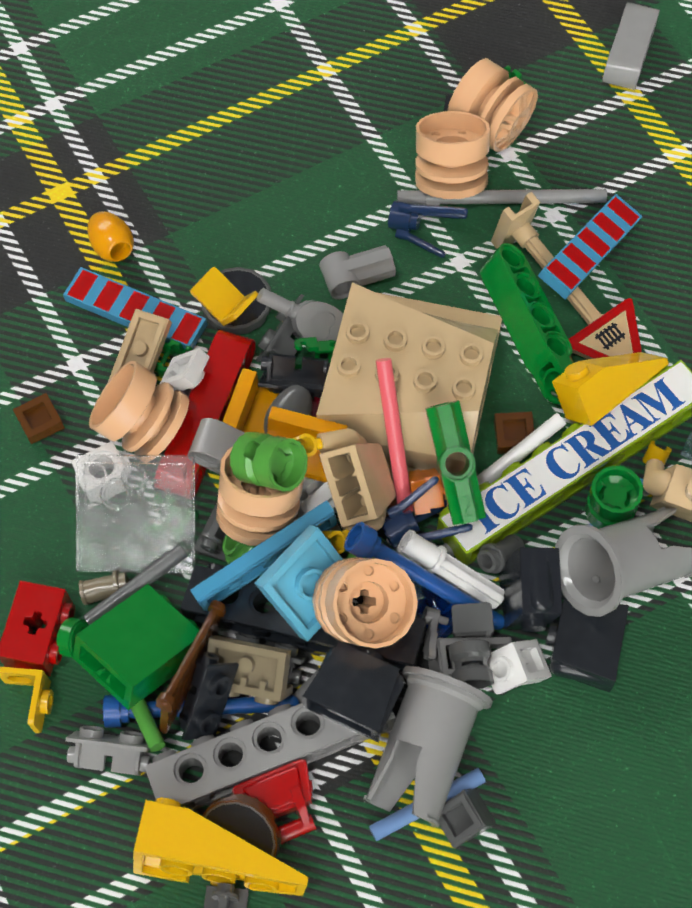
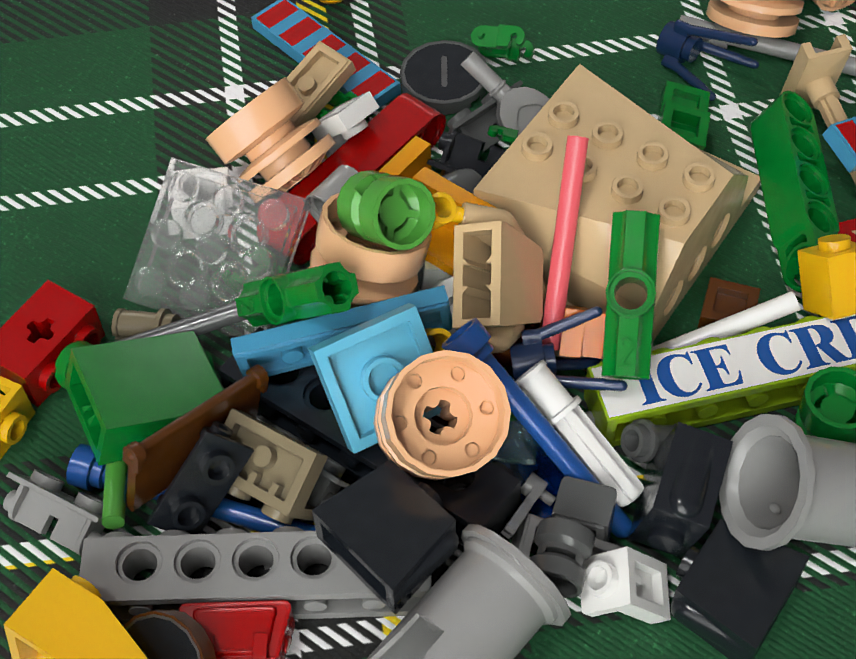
camera: 20 degrees right, 10 degrees down
(38, 418) = (162, 128): reddish brown plate -> none
(221, 296) = (424, 59): yellow bracket -> none
(224, 542) = (297, 295): none -> green piece
(270, 258) = (498, 42): none -> green piece
(360, 268) = (625, 77): light grey piece -> none
(429, 283) = (685, 112): none -> green slope

